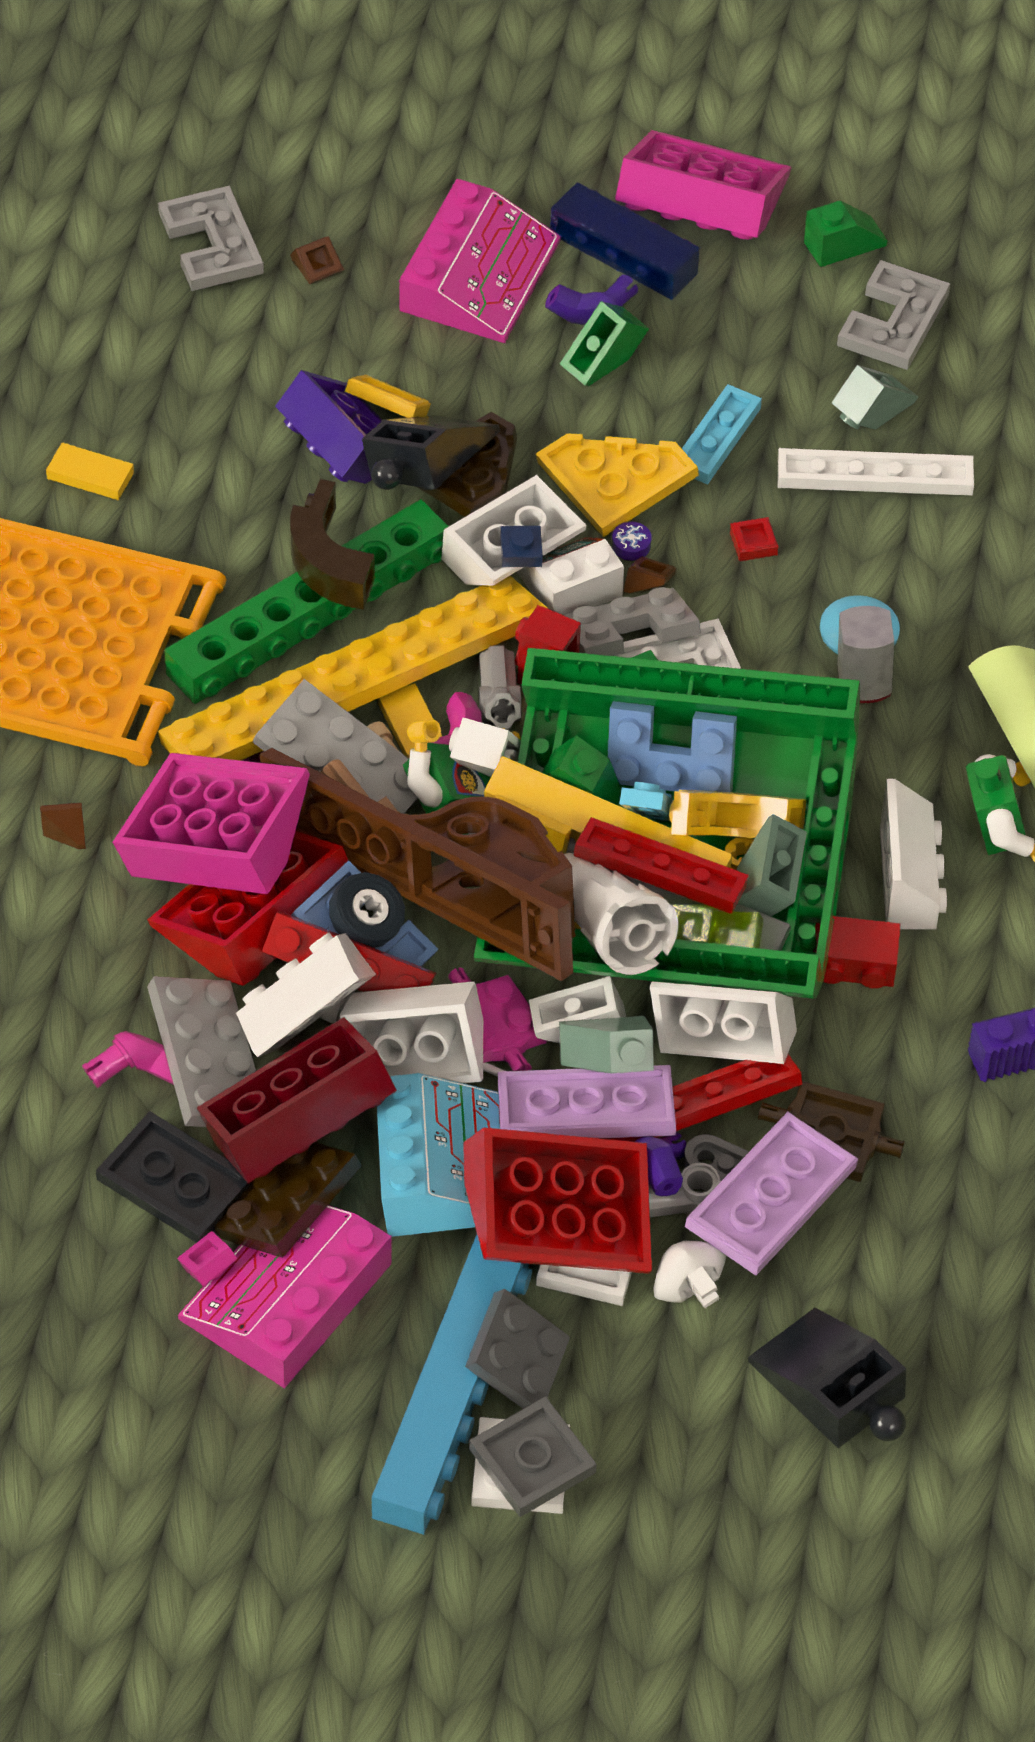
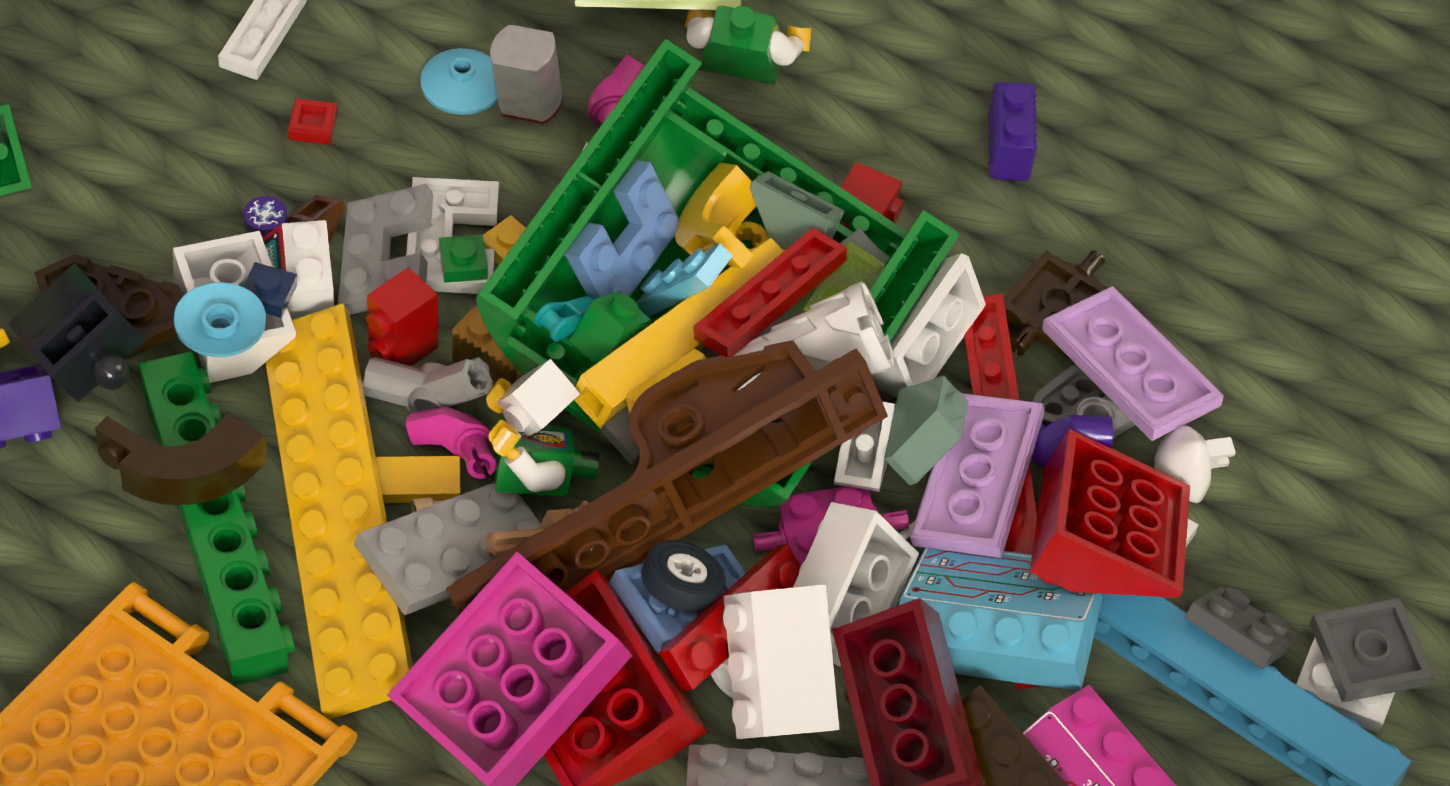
camera: 75 degrees left, 0 degrees up
(462, 508) = (219, 319): none -> medium azure dish
(558, 719) = (562, 317): none -> teal bar
(615, 476) = (180, 196): yellow plate -> none
(721, 430) = (167, 99): medium azure plate -> none
(835, 1377) = (1331, 391): black slope -> none
(896, 734) = (612, 89): none -> dark pink arm
(911, 859) = (808, 137): white slope -> none

